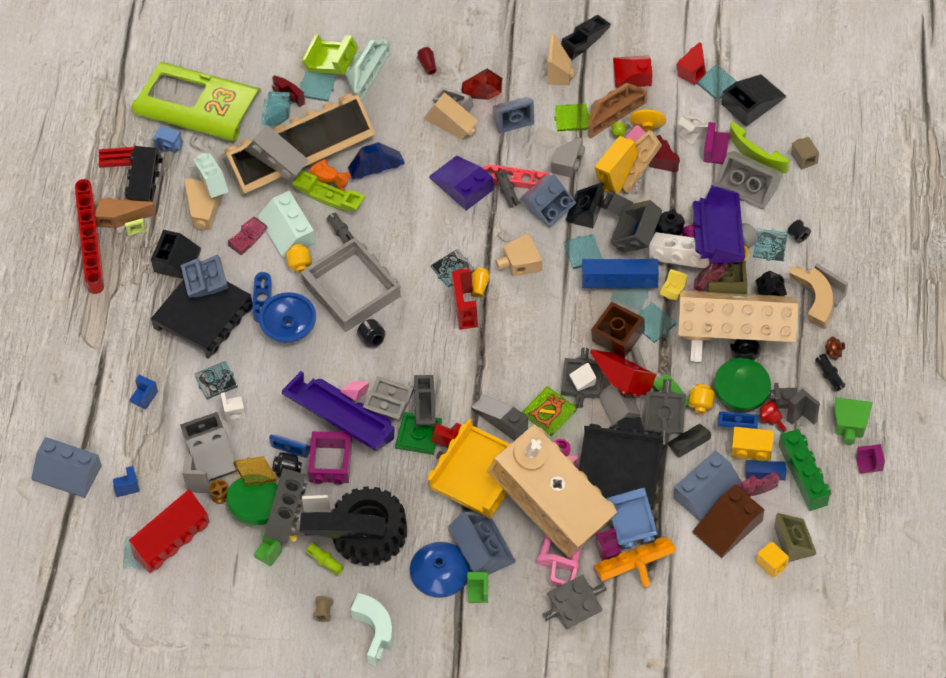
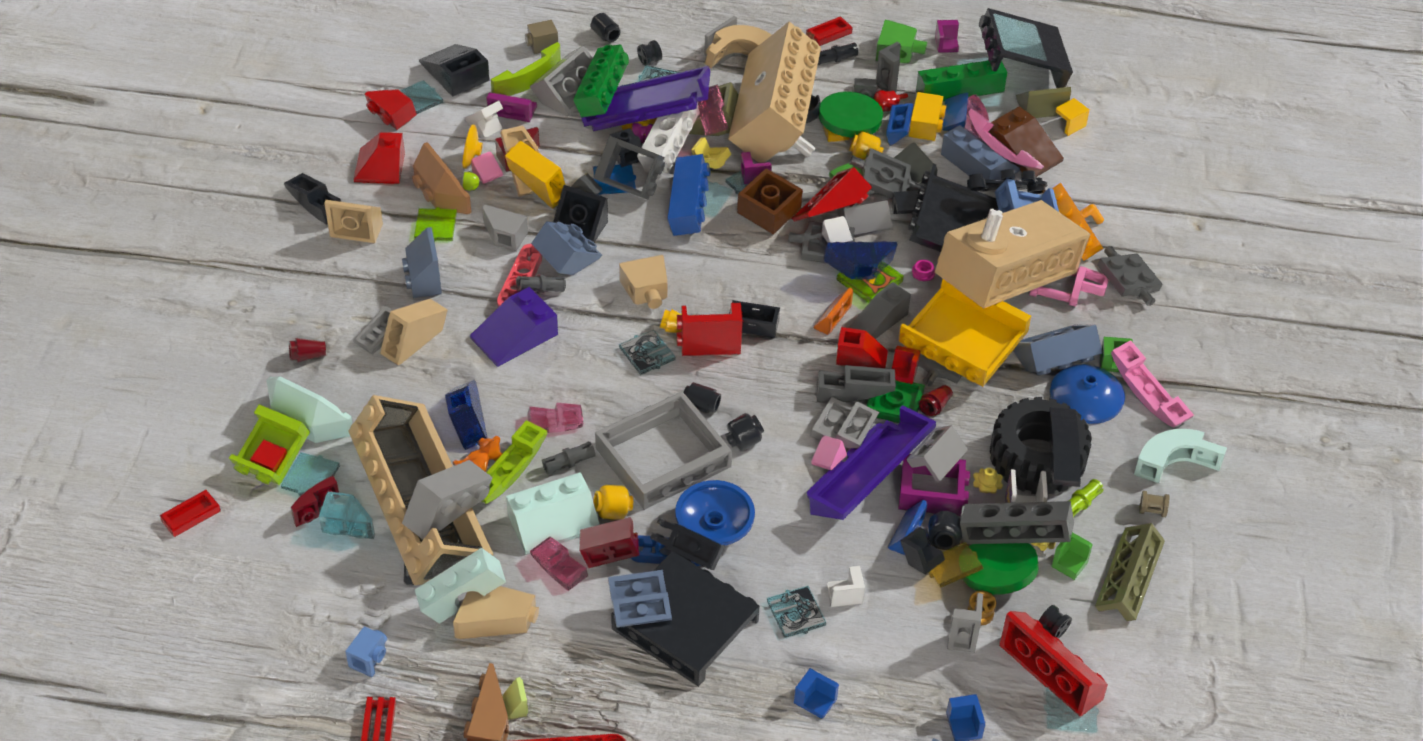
camera: 90 degrees left, 10 degrees down
(143, 174) = (432, 679): black wedge -> none
(172, 252) = (584, 647): black slope -> none
(207, 537) = (1055, 621): none -> black wheel
(209, 446) = (911, 613): slope -> none
(215, 112) = (312, 577): lime piece -> none
(255, 300) = (689, 544): none -> black hinge
(258, 592) = (1137, 568): none -> olive fence
(259, 258) = (609, 542): none -> dark red hinge
(262, 448) = (920, 553): none -> black panel
(278, 28) = (190, 513): none -> red tile
(320, 56) = (269, 455): none -> red tile
(336, 493) = (987, 480): none -> light yellow plant
(345, 450) = (939, 451): none -> light grey panel
(378, 217) = (560, 419): none -> clear pink slope
(402, 303) = (703, 397): none -> black brick
(417, 459) = (934, 401): none -> dark red cone
(444, 611) = (1146, 387): none -> bright pink slope
(458, 402) = (860, 349): none -> red slope
(483, 85) = (367, 297): clear red slope -> none
(490, 322) = (765, 319): none -> black piece
(505, 388) = (835, 312): none -> orange slope
(555, 396) = (860, 258): none -> clear blue slope
(582, 248) = (641, 232): clear light blue piece -> none
(658, 505) = (1028, 181): none -> black plant
(659, 318) = (749, 170): none -> magenta panel
(709, 494) = (983, 127): none -> bright pink slope
(739, 194) = (601, 80): none -> green brick
(771, 284) = (730, 73): black brick -> none
(827, 195) = (605, 27): none -> black brick
(848, 513) = (1025, 42): none -> black panel
(864, 367) = (830, 30): none -> red tile

